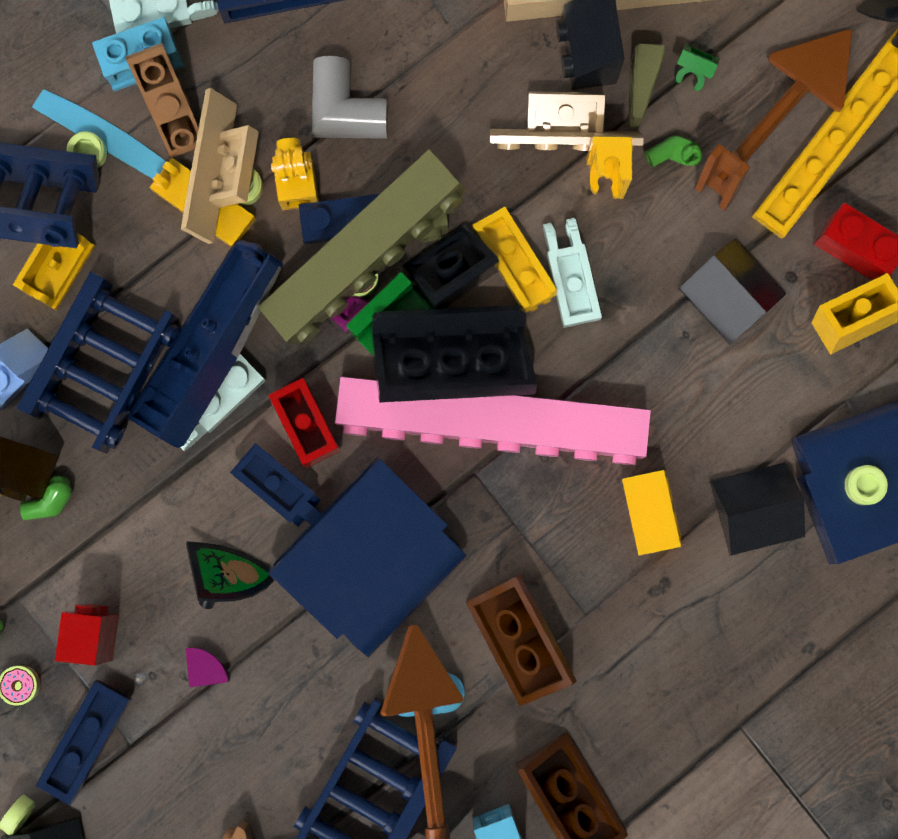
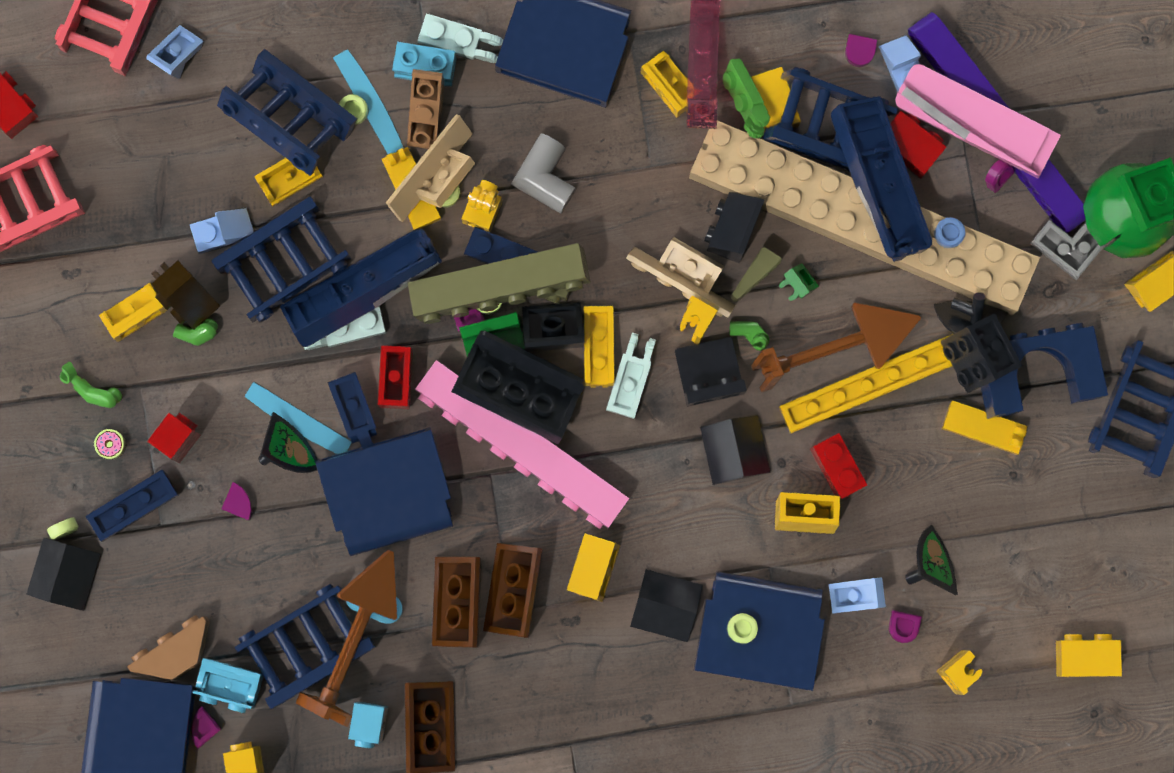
camera: 25 degrees right, 0 degrees up
(232, 535) = (302, 422): none -> medium azure sticker
(577, 590) = (512, 590): none -> reddish brown slope
(655, 219) = (709, 371): none -> black bracket

